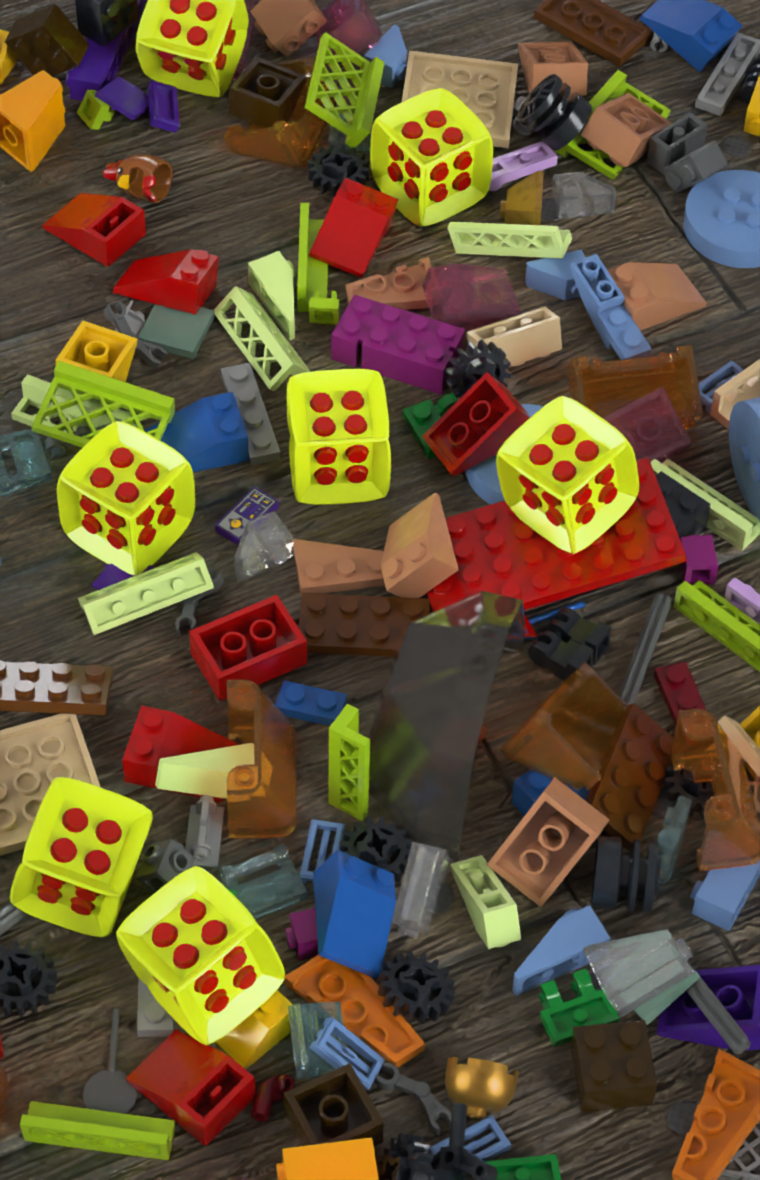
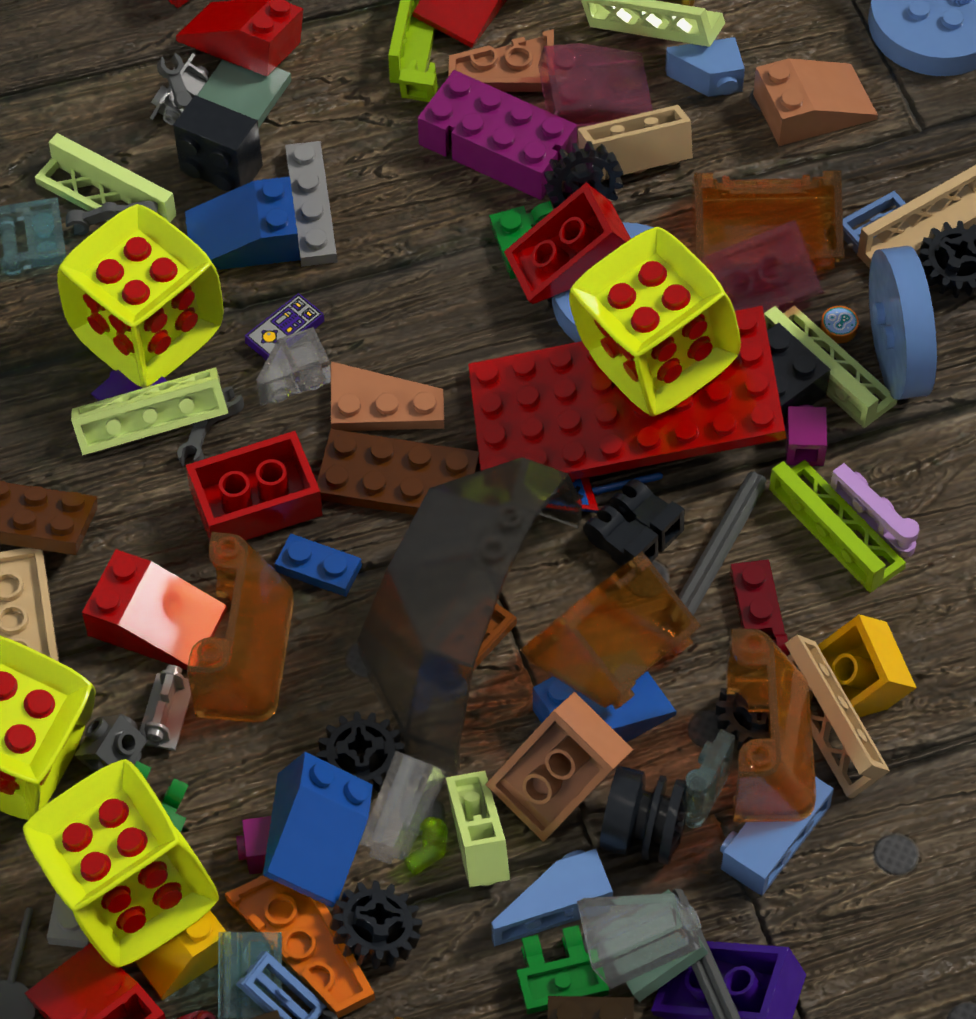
camera: 10 degrees right, 5 degrees up
(100, 351) = (138, 124): yellow slope -> none
(106, 390) = (141, 162): lime fence -> none
(168, 368) = (217, 144): none -> black brick
(203, 771) = (170, 636): yellowish green slope -> none
(268, 333) = (341, 103): yellowish green fence -> none
(268, 891) = (227, 787): clear light blue plate -> none
(273, 283) = (366, 47): yellowish green slope -> none
(305, 874) = (288, 732): medium blue tile -> none
(338, 436) = (400, 244): neon yellow piece -> none
(348, 764) = (336, 647): lime fence -> none
(418, 551) = (472, 393): nougat slope -> none
(450, 920) = (433, 845): none -> clear neon green arm
(606, 309) = (753, 114): medium blue slope -> none
(632, 774) = (674, 695): reddish brown plate -> none
(707, 469) = (840, 323): none -> tile

